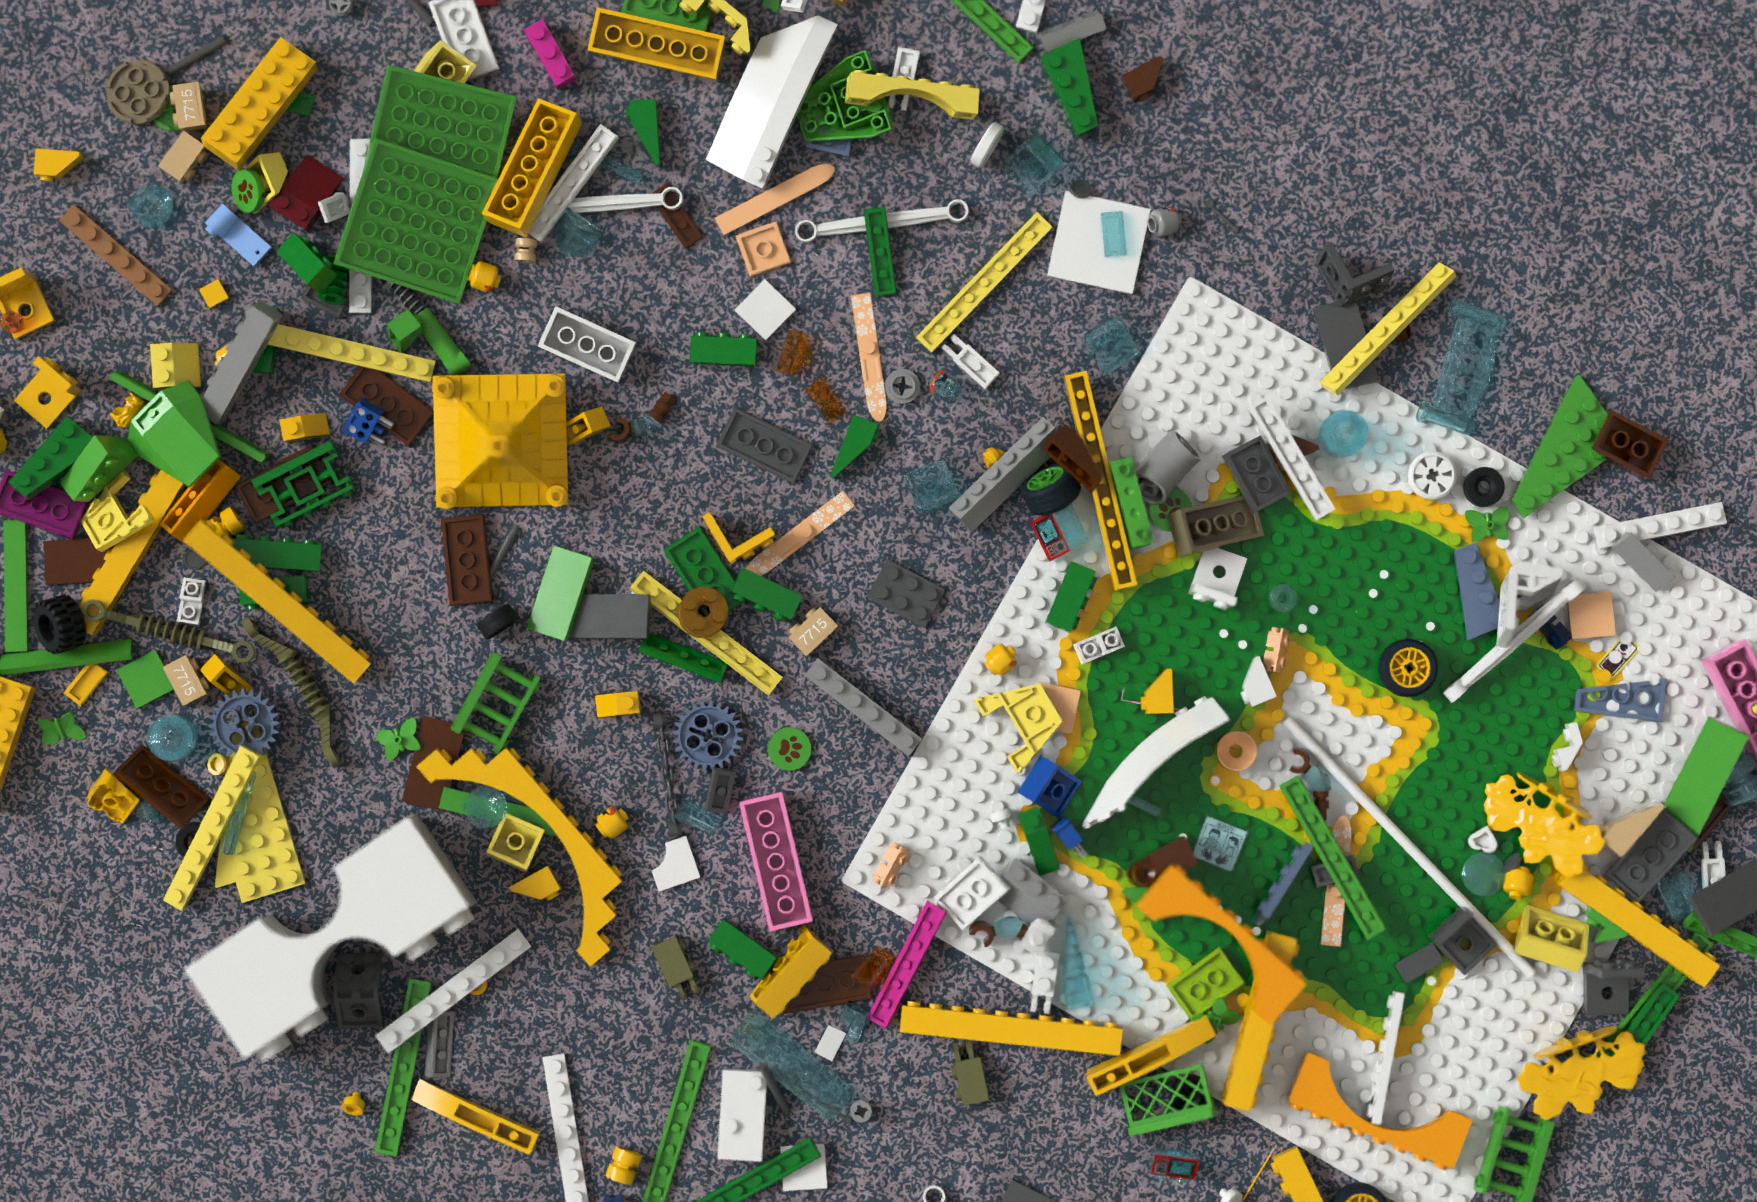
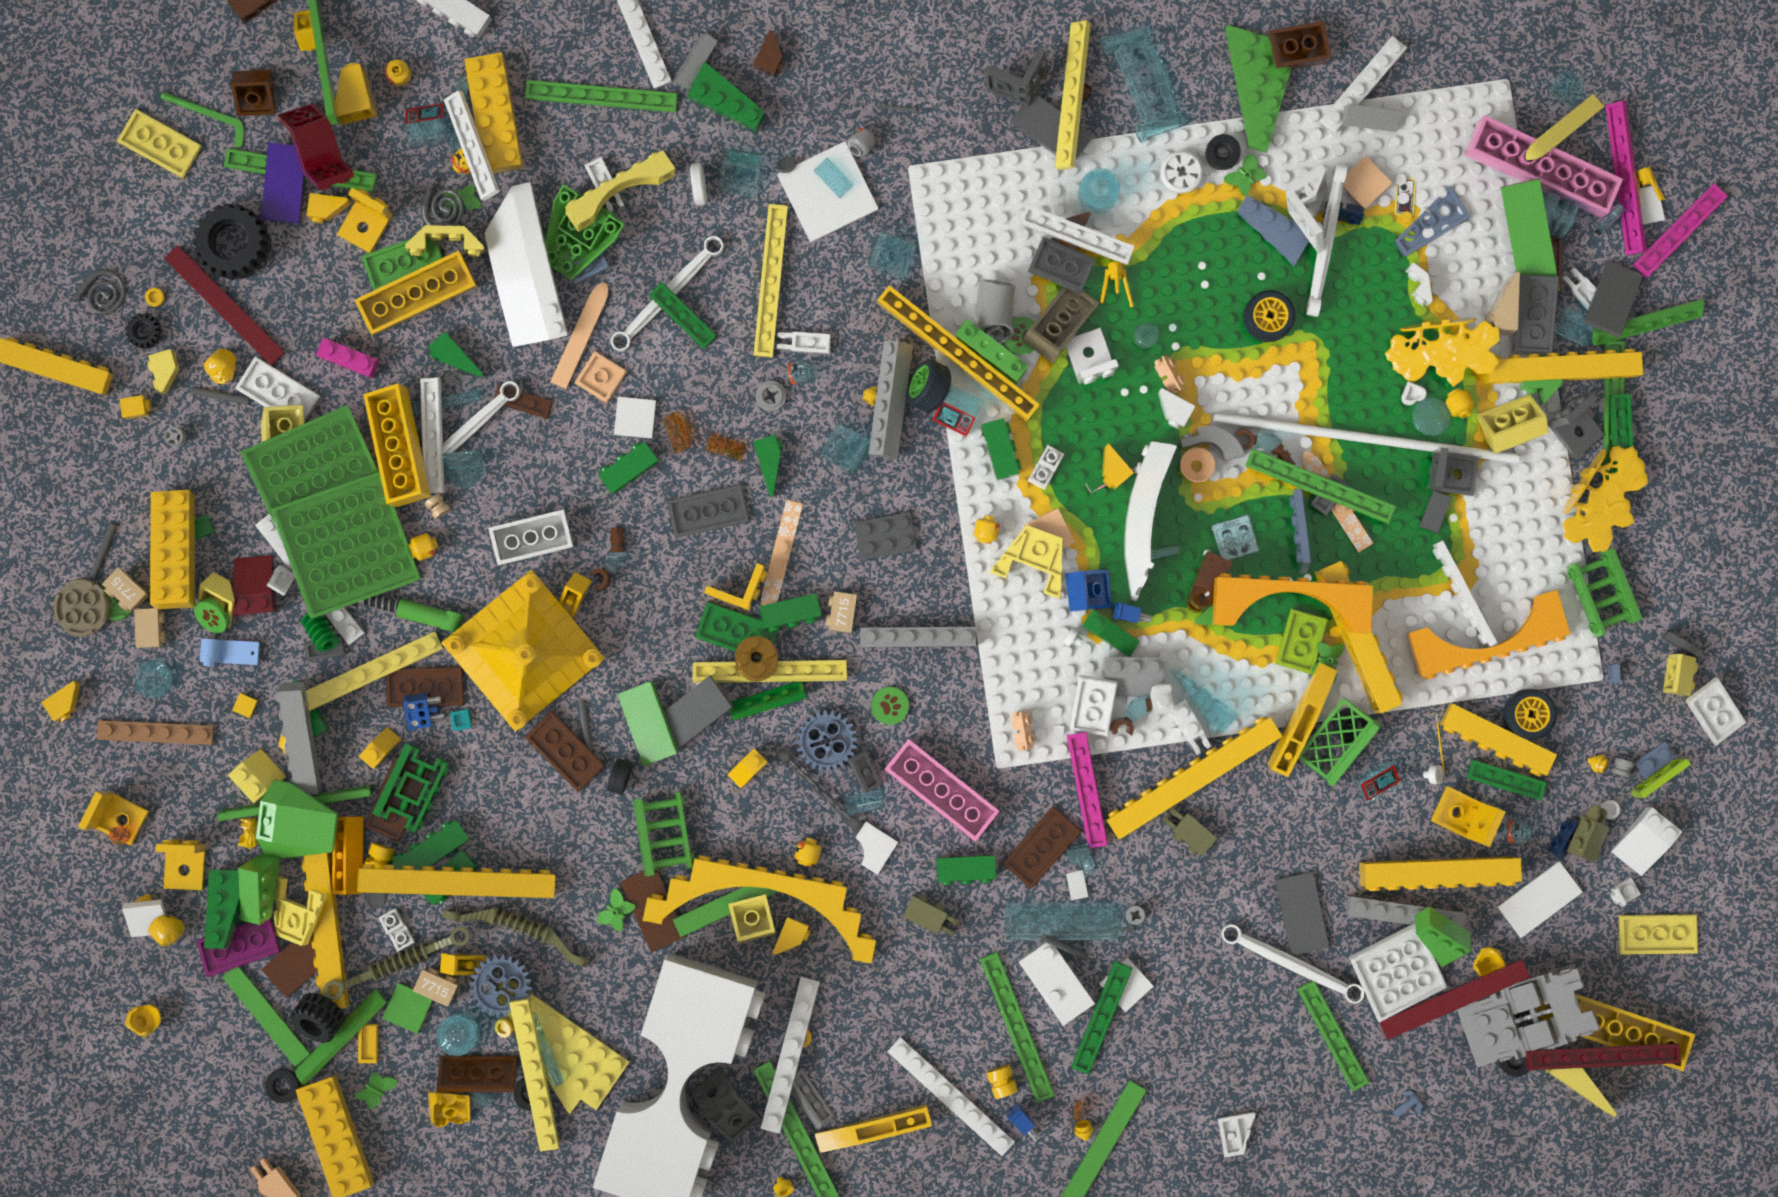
camera: 35 degrees left, 0 degrees up
(307, 262) = (292, 632): green brick -> none
(396, 458) = (461, 720): none -> teal tile
(404, 330) = (396, 626): bright green slope -> none
(485, 807) = (712, 910): clear light blue dish -> none
(791, 972) = (1012, 858): yellow wedge -> none
(869, 355) = (731, 392): light nougat piece -> none
(874, 968) = (1067, 810): clear orange slope -> none
(1072, 455) = (926, 350): reddish brown slope -> none
(1276, 743) = (1215, 436): none -> light grey arch
(1301, 519) = (1116, 272): none -> yellow plant
(1512, 862) = (1444, 393): dark grey piece -> none

